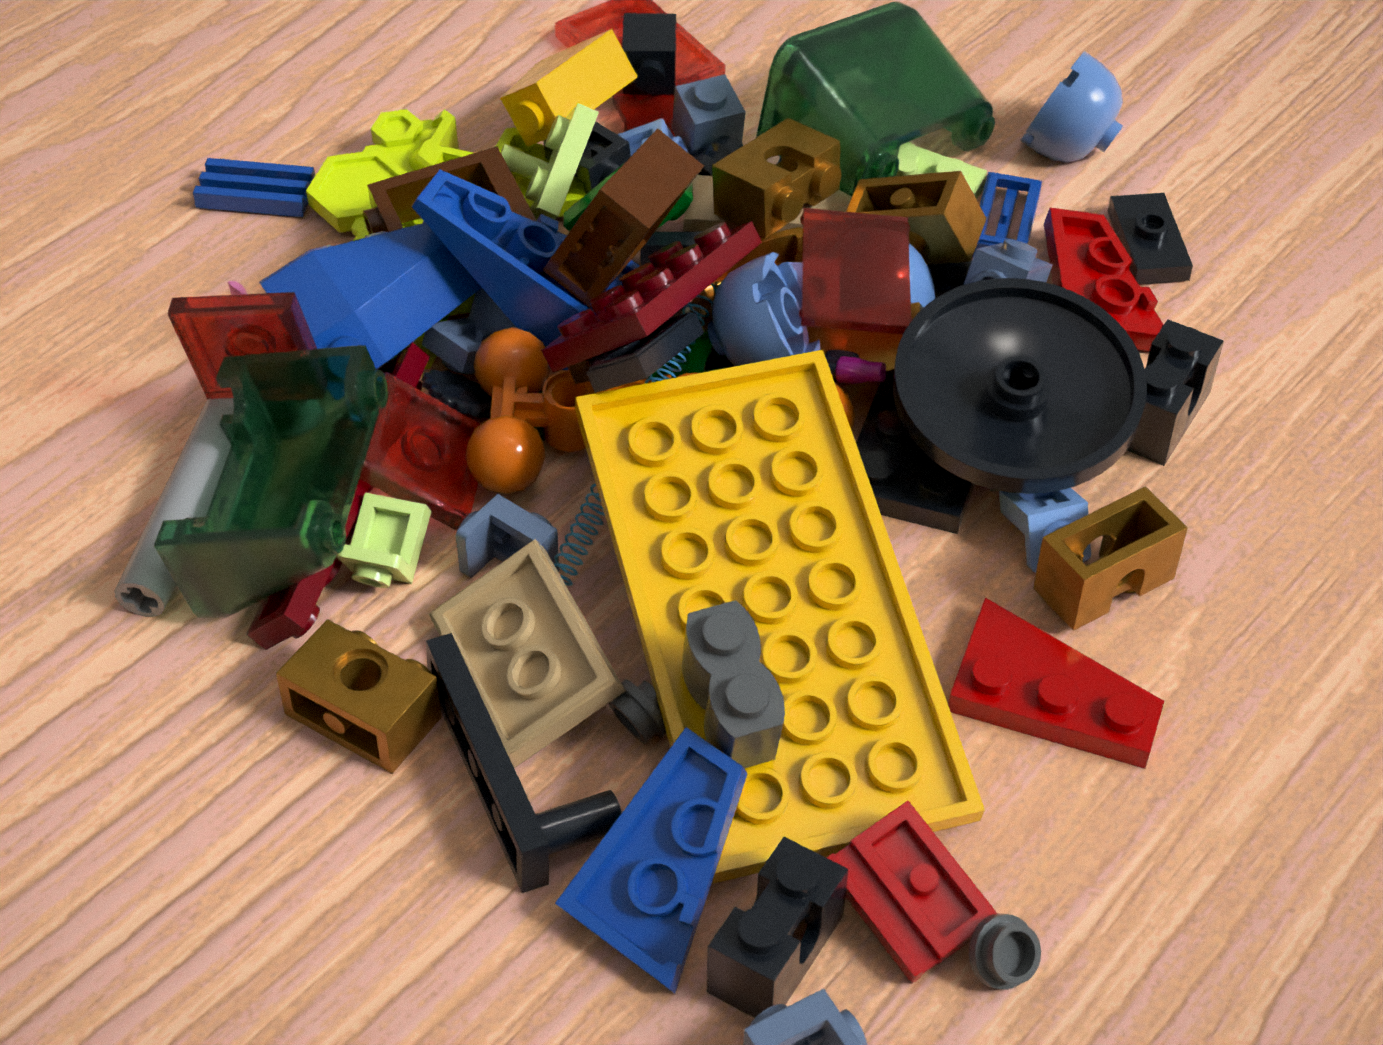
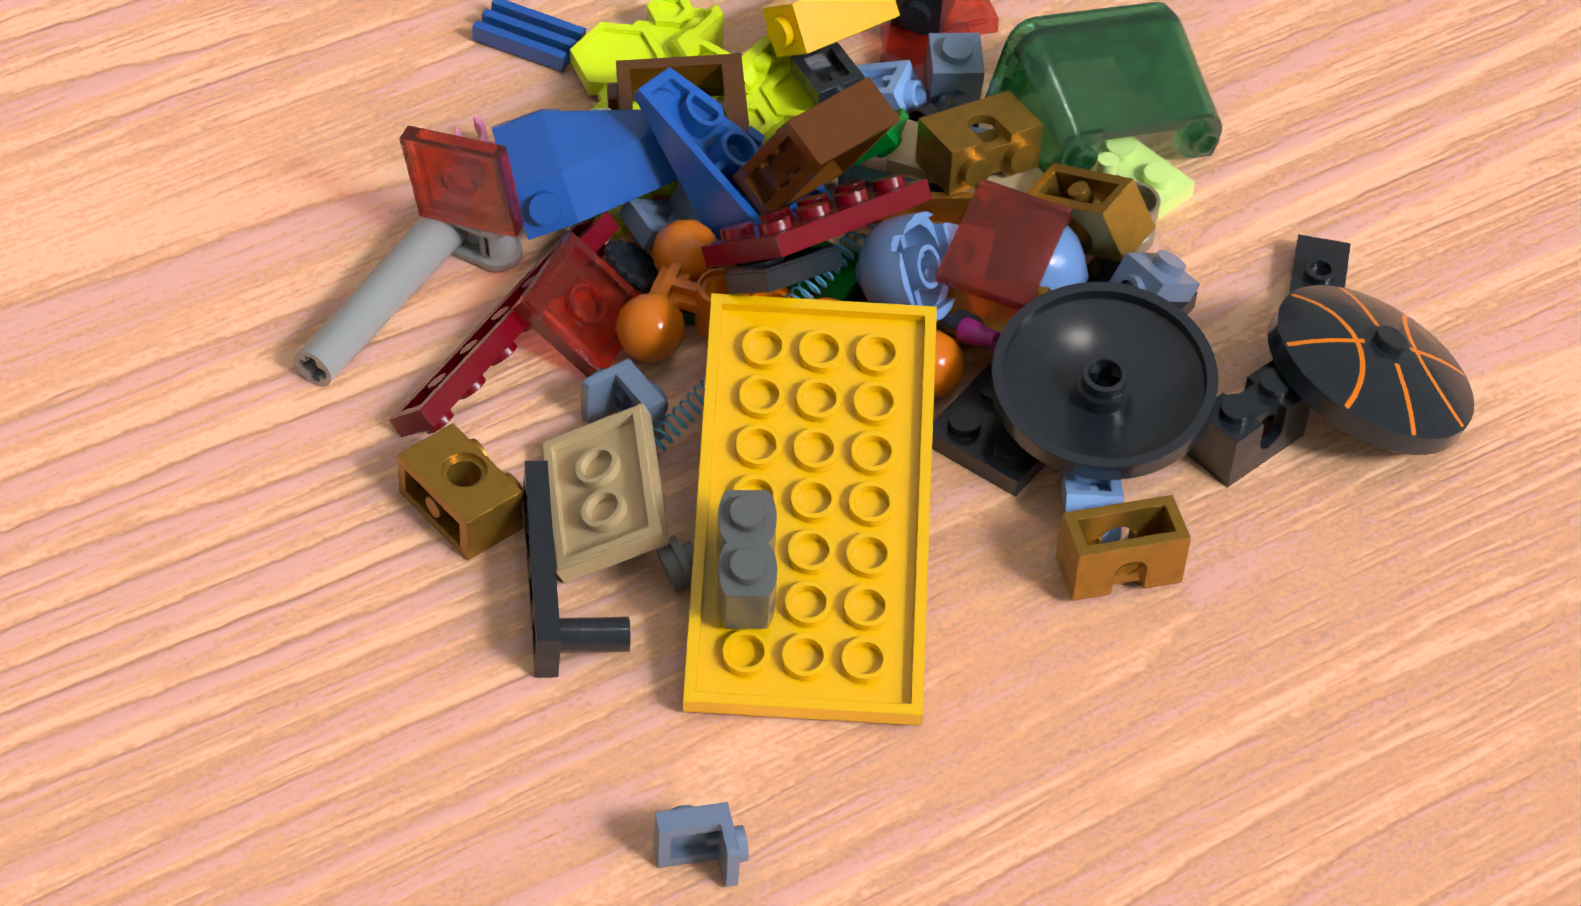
camera: 15 degrees right, 0 degrees up
(287, 479) = (460, 301): clear green windscreen -> none
(386, 541) = (526, 374): yellowish green bracket -> none
(553, 179) = (784, 89): yellowish green plate -> none
(659, 859) = (645, 676): blue wing -> none
(753, 954) = (687, 761): black brick -> none
(911, 891) = (834, 757): red plate -> none
(1004, 951) = (888, 822): dark grey plate -> none
(1013, 185) = (1211, 238): blue tile -> none
(1051, 691) = (1029, 642): red wing -> none
(1078, 114) = (1300, 148): medium blue cylinder -> none
(1096, 266) = (1241, 302): red wing -> none
(1260, 307) = (1370, 370): none -> black dish

